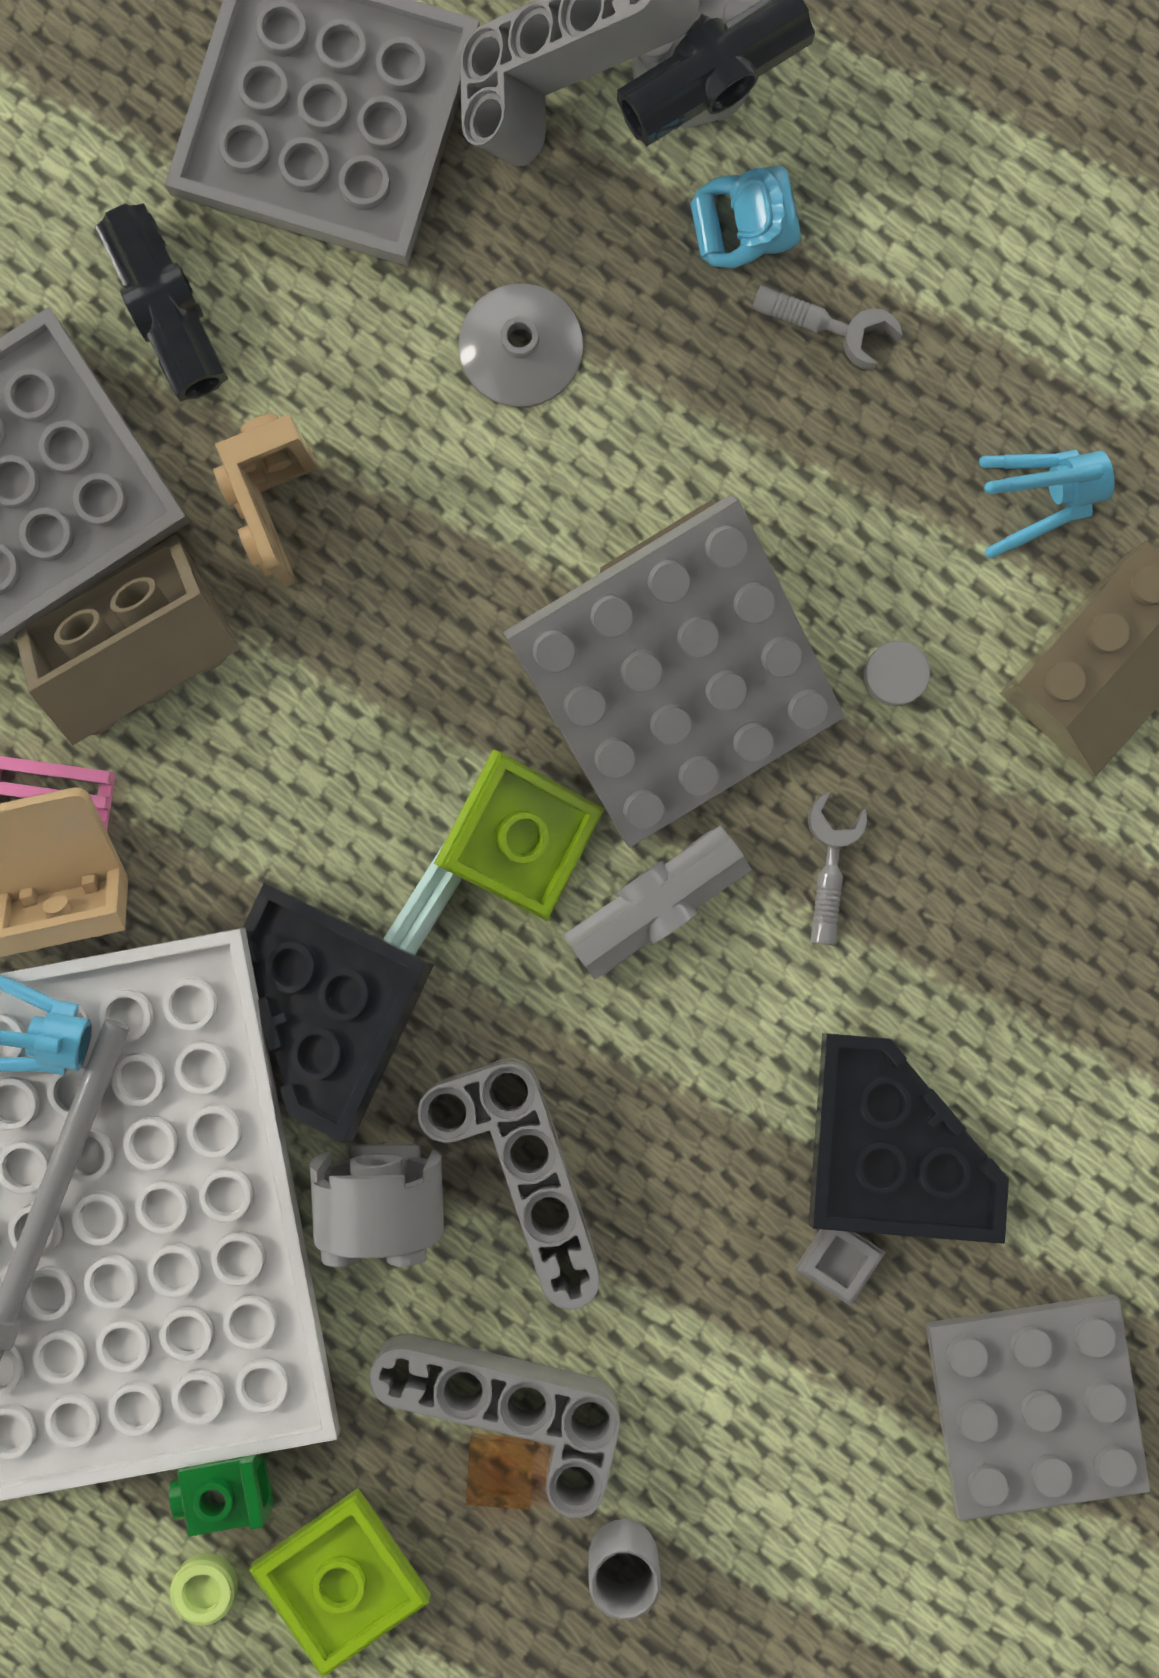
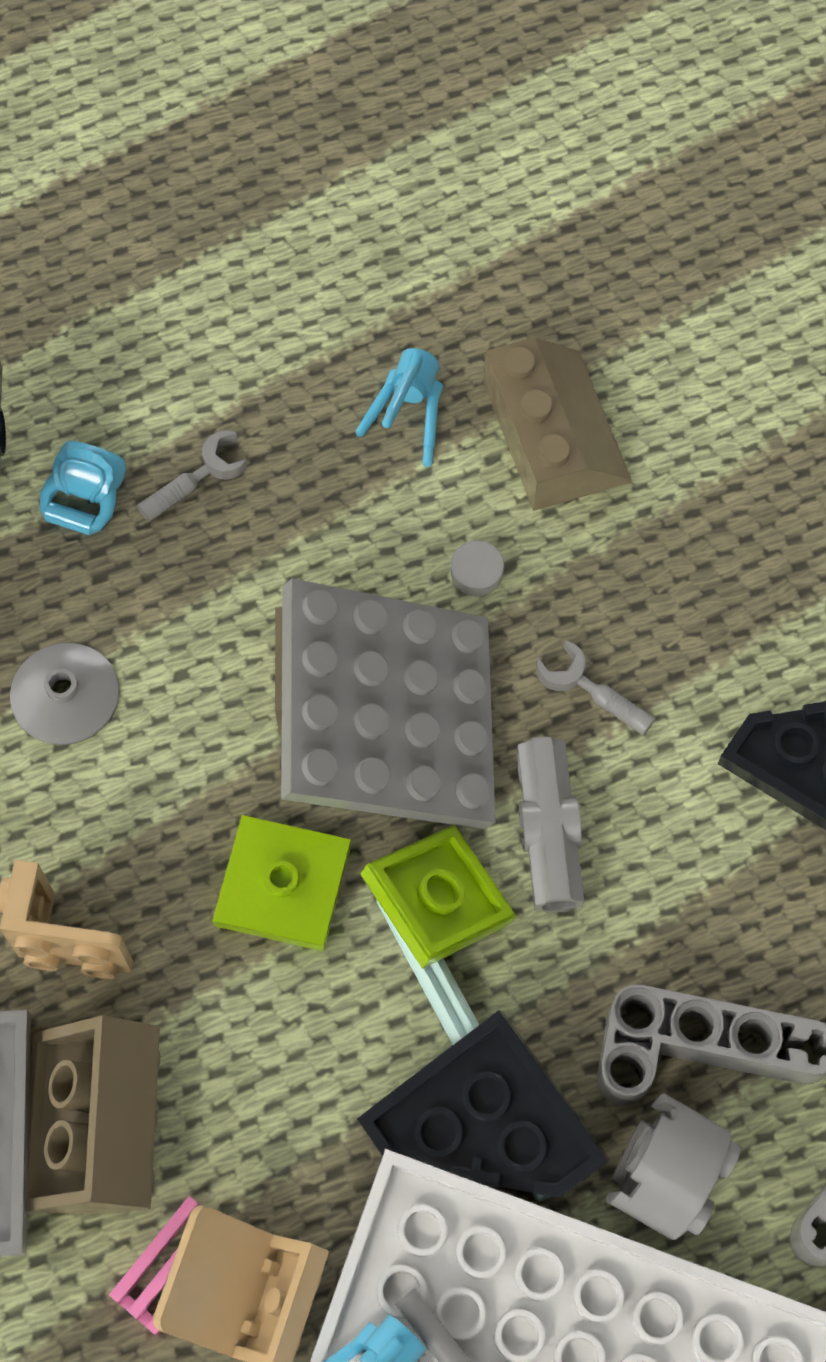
camera: 65 degrees left, 20 degrees down
(451, 677) = (282, 883): none -> lime plate

